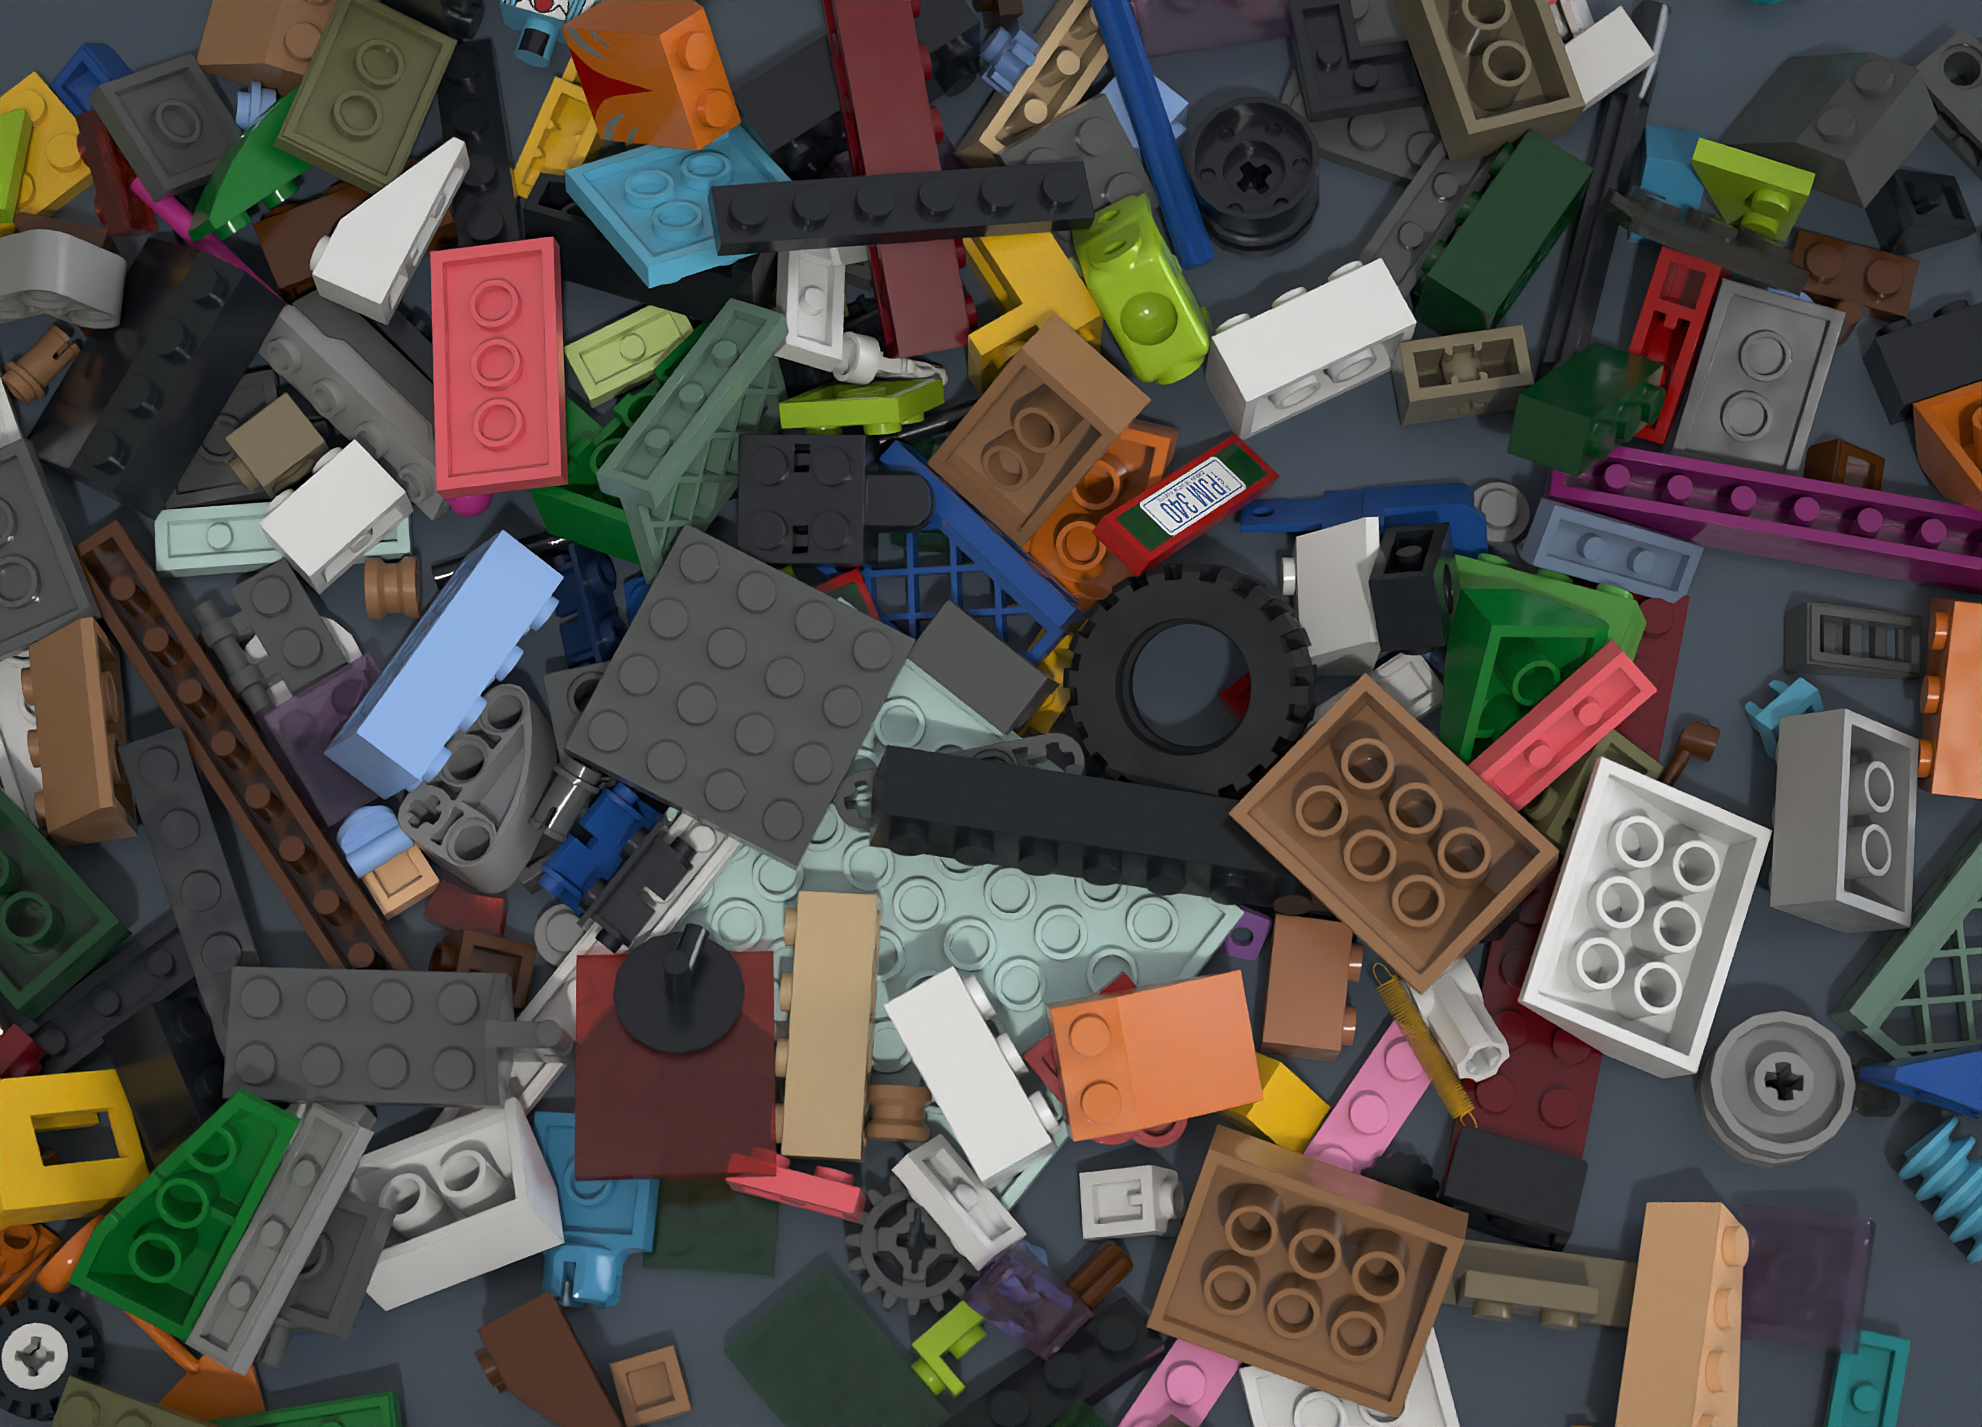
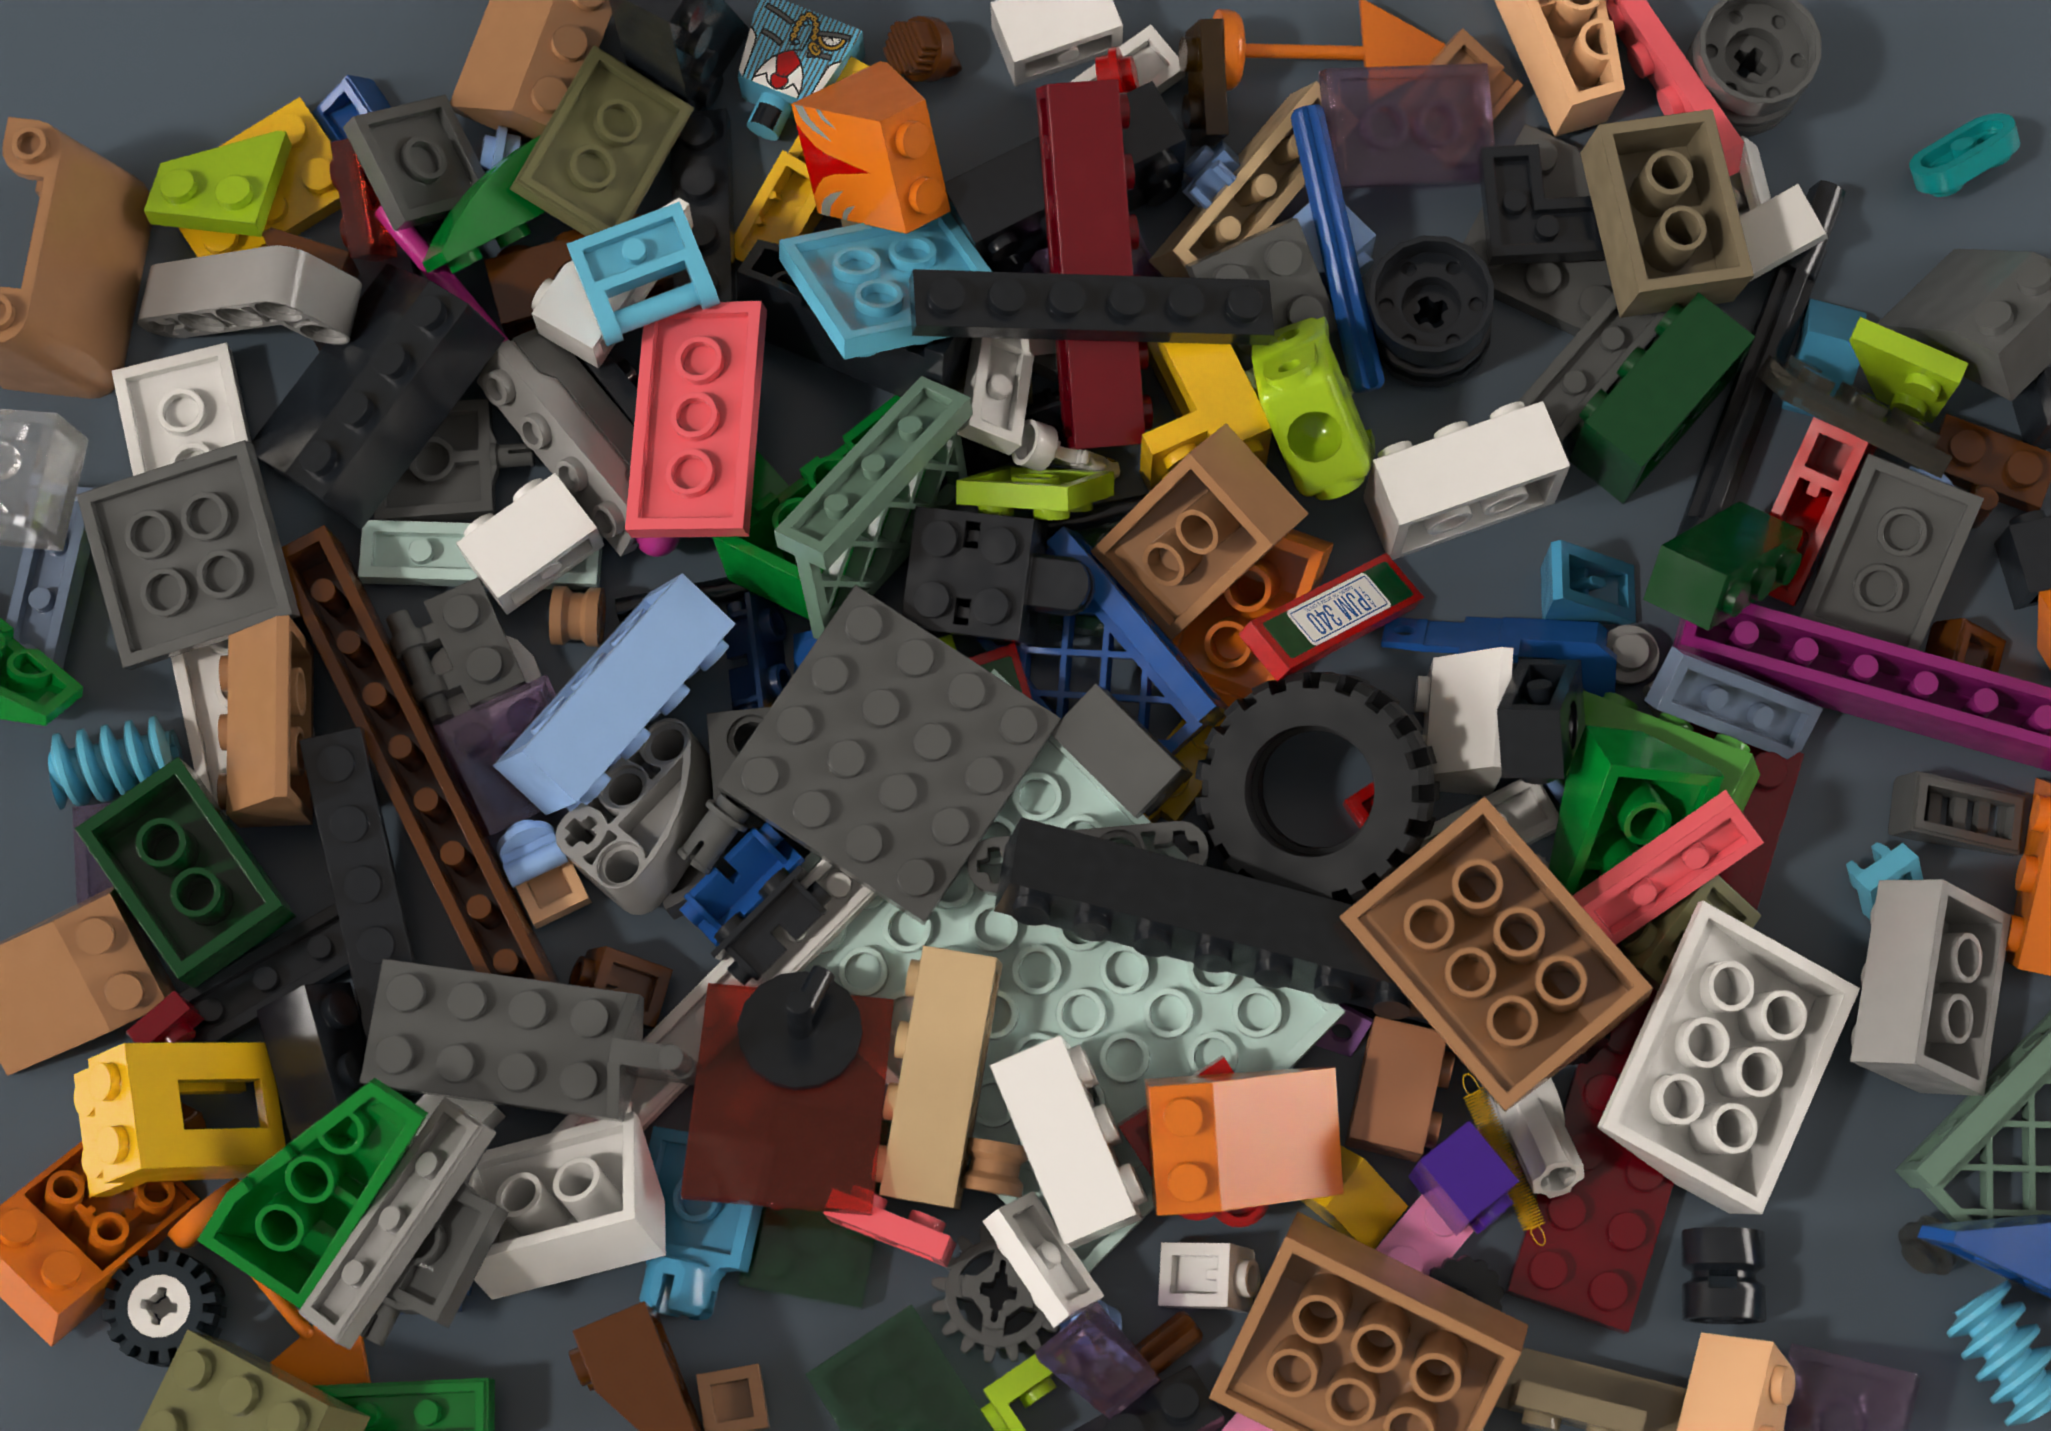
camera: 10 degrees right, 0 degrees up
(39, 365) = (272, 372): medium nougat pin -> none
(275, 448) = (480, 473): dark tan brick -> none
(416, 202) = (638, 255): none -> medium azure plate
(457, 909) = (604, 927): clear red piece -> none
(557, 934) = (693, 959): light grey plate -> none
(625, 352) = (819, 416): yellowish green plate -> none
(1387, 1072) = (1465, 1181): none -> dark purple brick
(1446, 446) = (1586, 586): none -> dark azure slope
(1461, 374) = (1611, 516): dark tan brick -> none
(1514, 1189) = (1575, 1304): black panel -> none
(1663, 1119) = (1723, 1253): none -> black wheel
(1695, 741) = (1793, 892): reddish brown hand -> none
(1748, 1116) = (1873, 1230): light grey wheel -> none

